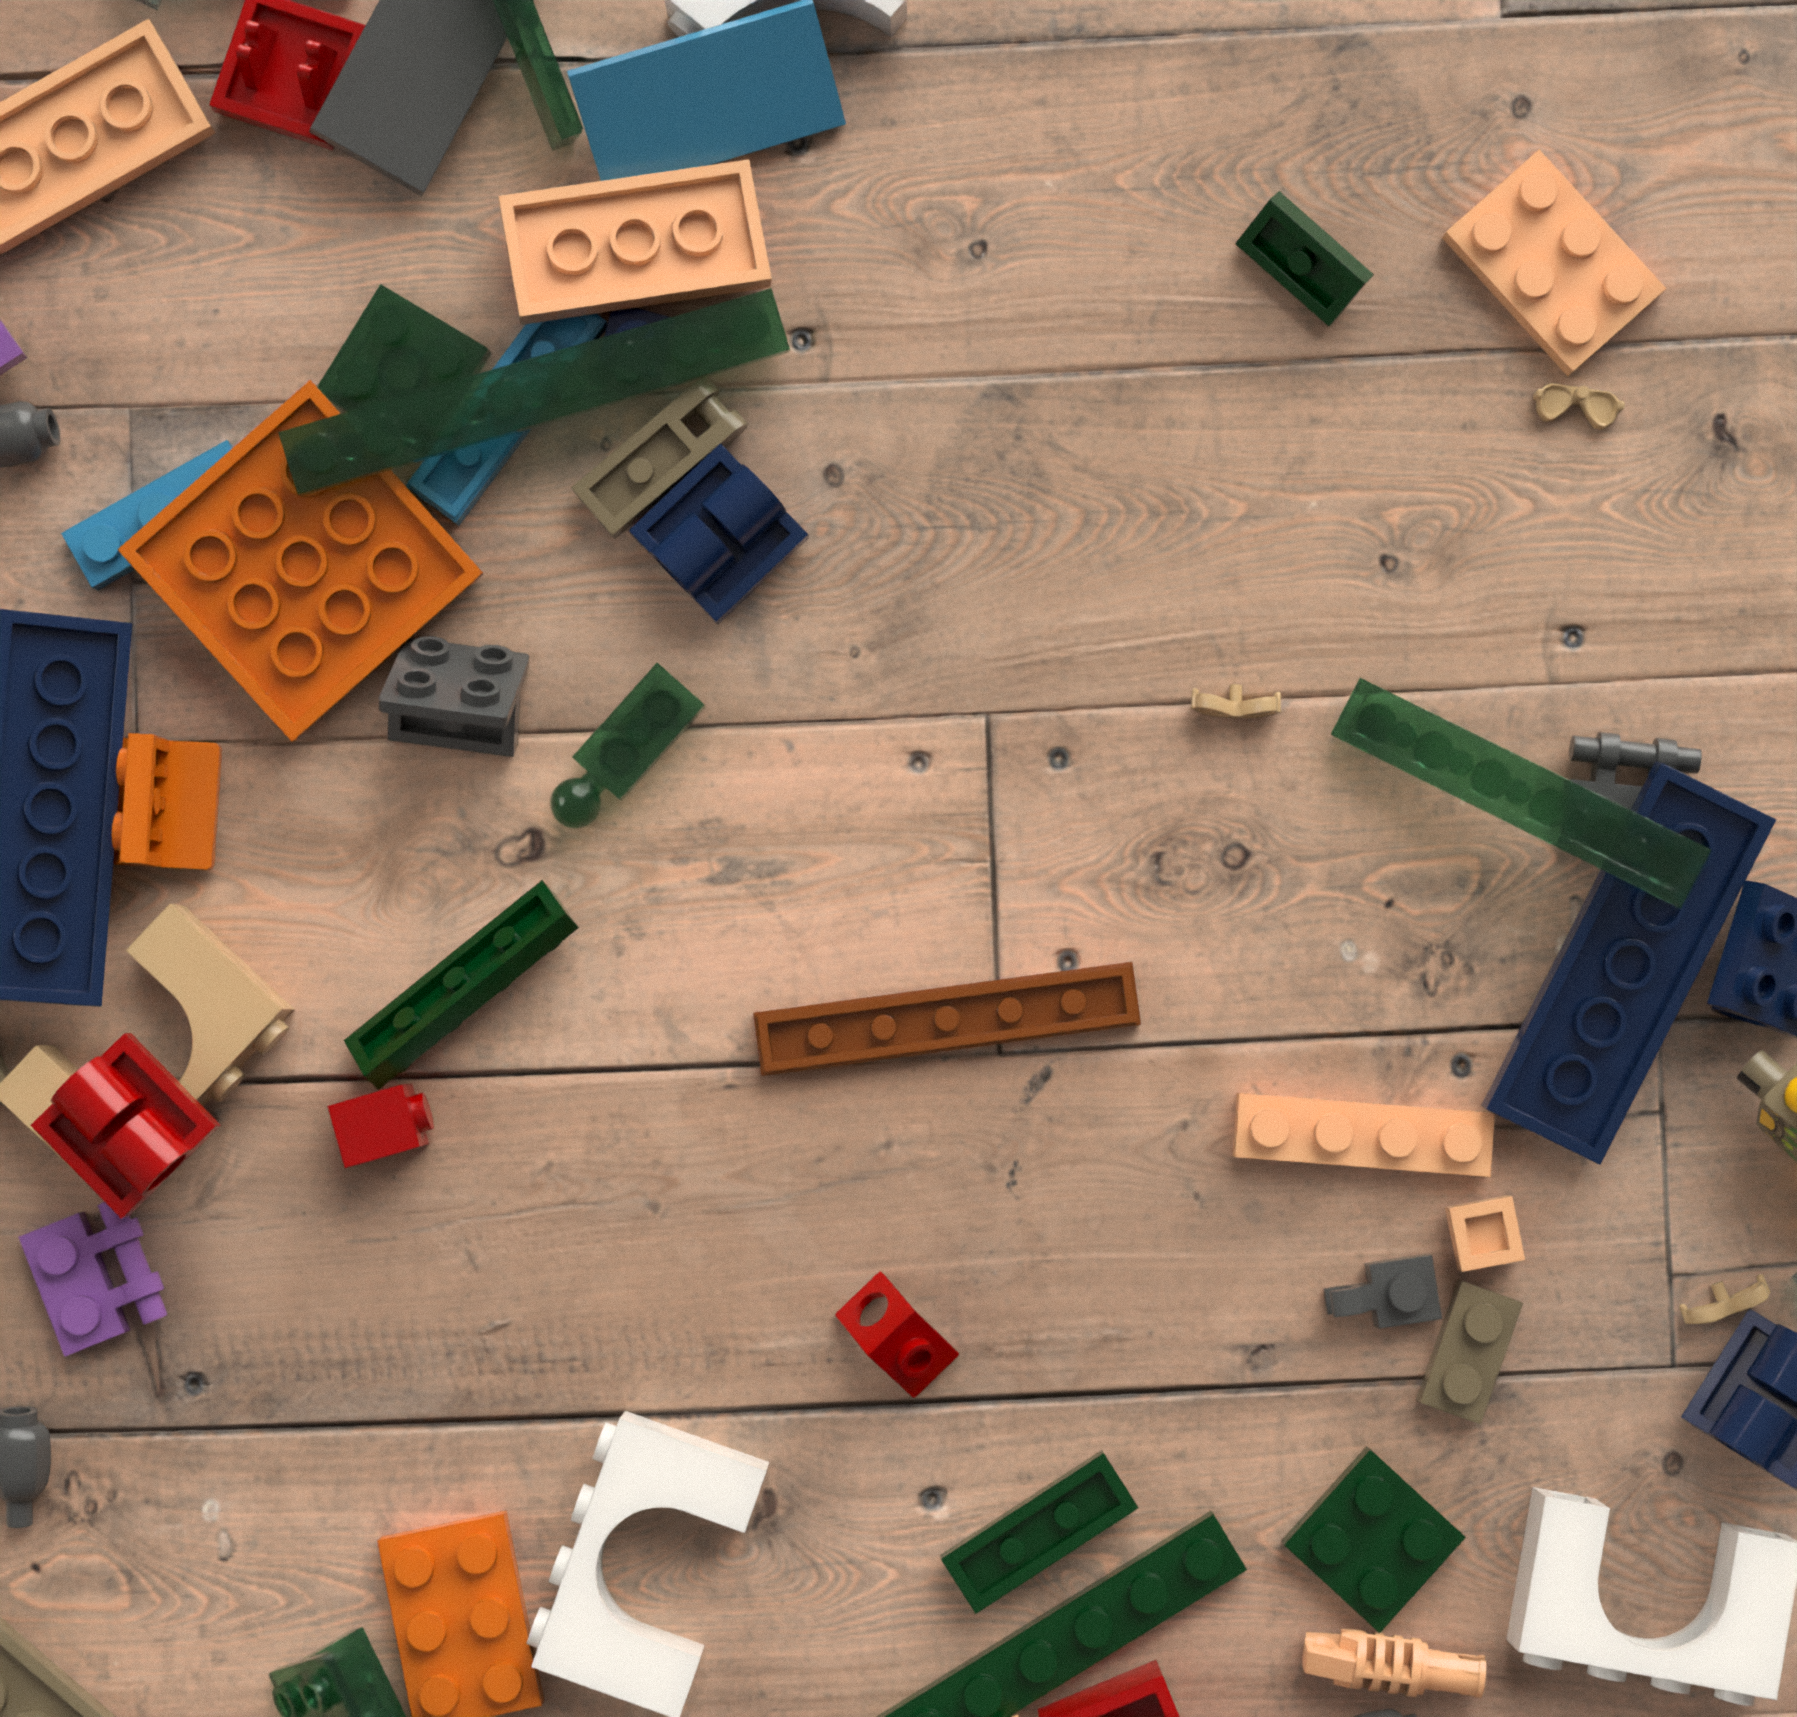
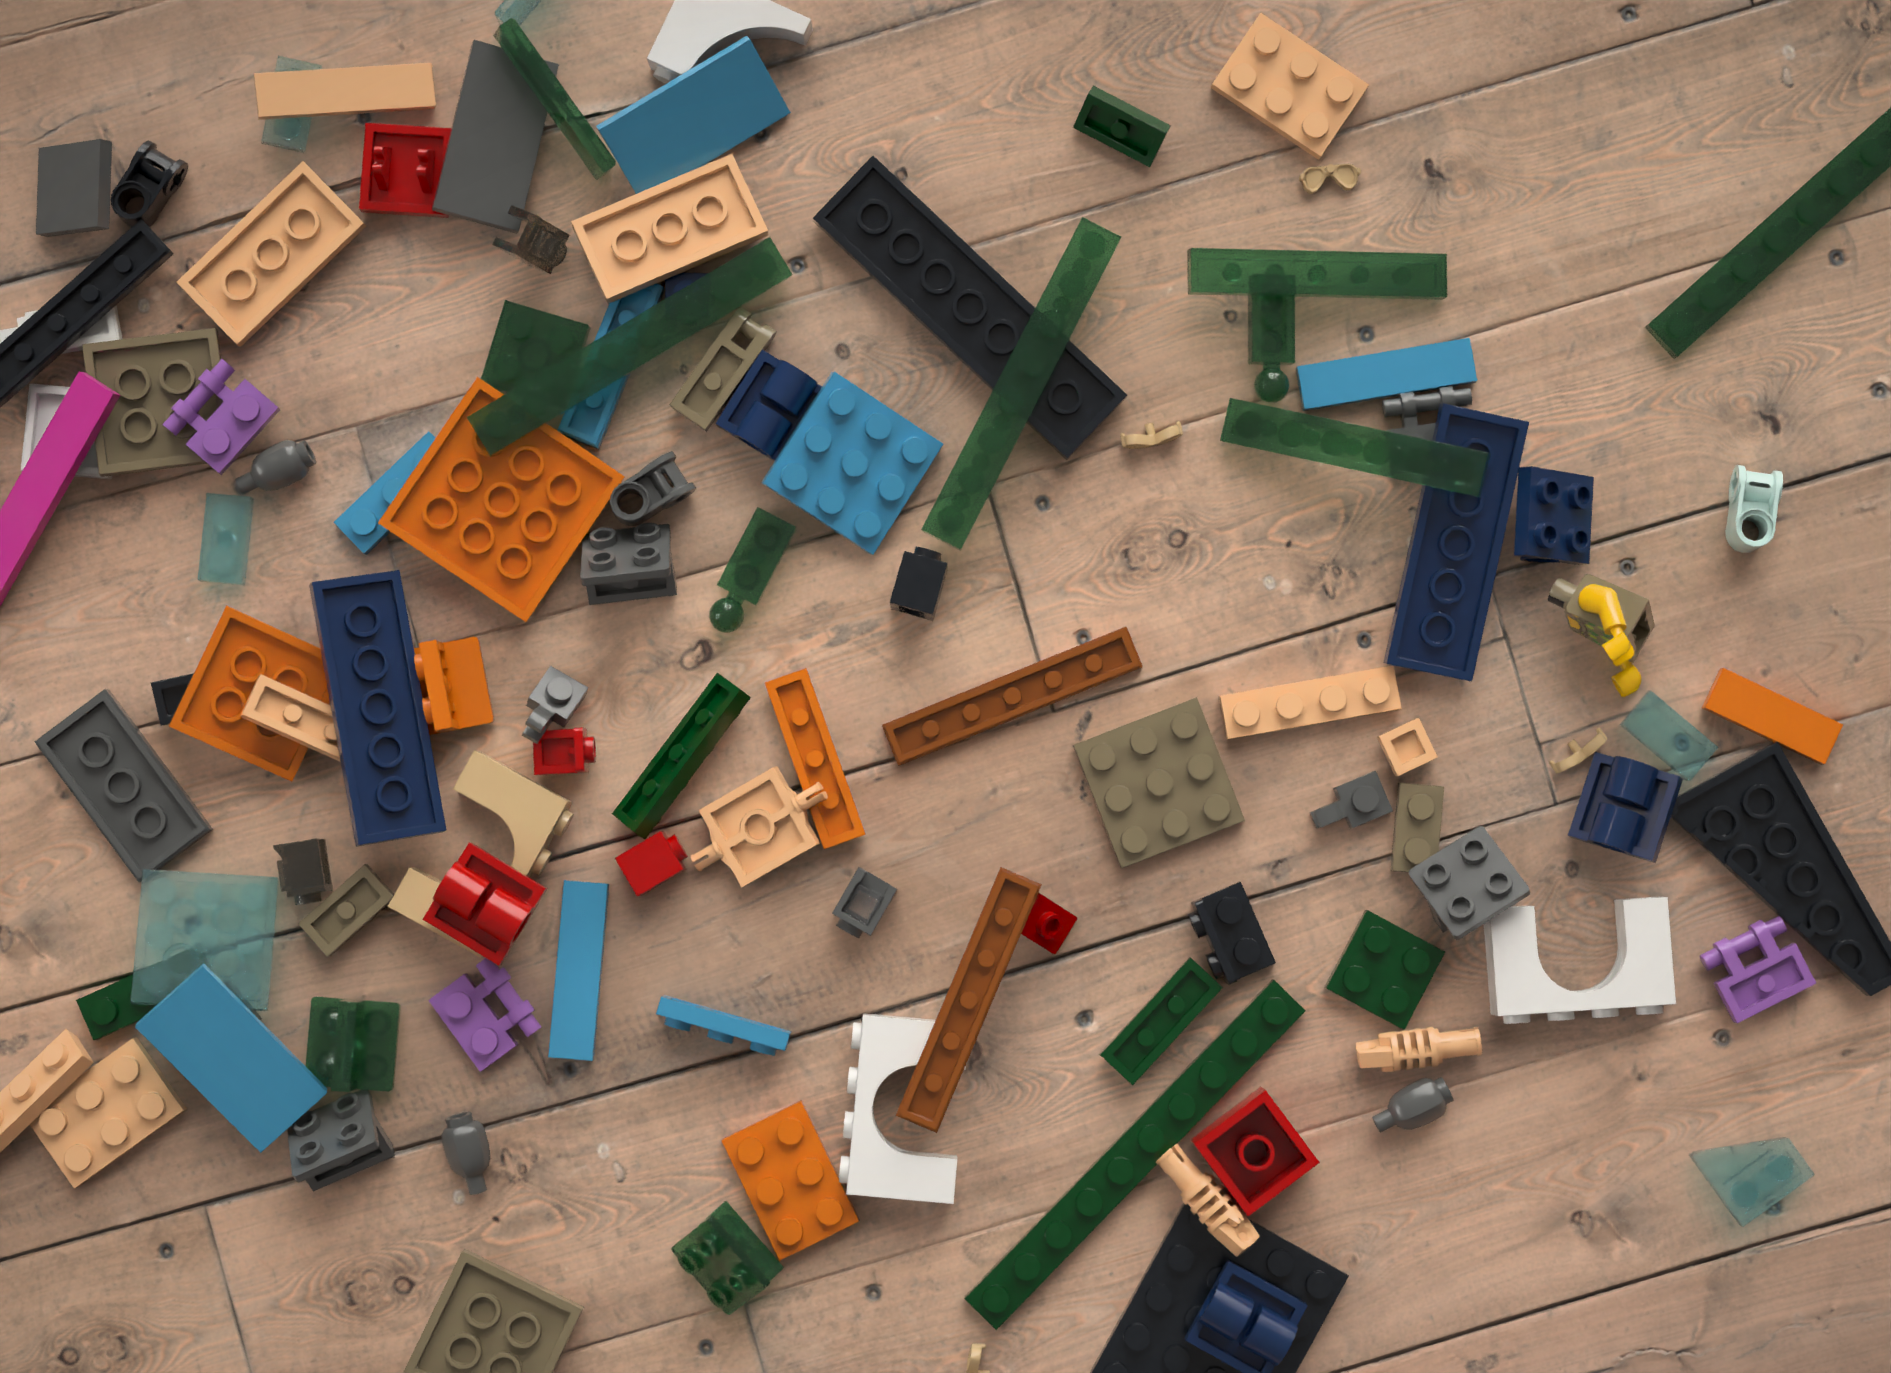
camera: 15 degrees left, 0 degrees up
(240, 1249) = (578, 970): none -> dark azure tile
(296, 936) = (564, 752): none -> red bracket
(301, 861) = (552, 701): none -> plate
(421, 1378) = (723, 1025): none -> dark azure plate
(444, 215) = (540, 243): none -> clear smoke window
(517, 599) = (653, 489): none -> dark grey piece
(544, 1112) = (759, 826): none -> light nougat plate
(647, 1036) = (815, 757): none -> orange plate
(662, 1258) = (863, 903): none -> dark grey window
(773, 1436) = (968, 1000): none -> dark orange tile
(806, 634) = (852, 463): none -> dark azure plate
(855, 828) = (919, 583): none -> black brick
(1026, 459) = (960, 298): none -> black plate
(1071, 583) = (1021, 384): none -> clear green plate
(1122, 1193) = (1158, 782): none -> dark tan plate
(1170, 1433) = (1232, 933): none -> black bracket
(1441, 600) = (1271, 343): none -> clear green plate
(1525, 1452) = (1468, 883): none -> dark grey bracket
(1526, 534) = (1316, 273): none -> clear green tile
(1587, 700) = (1386, 374): none -> dark azure tile

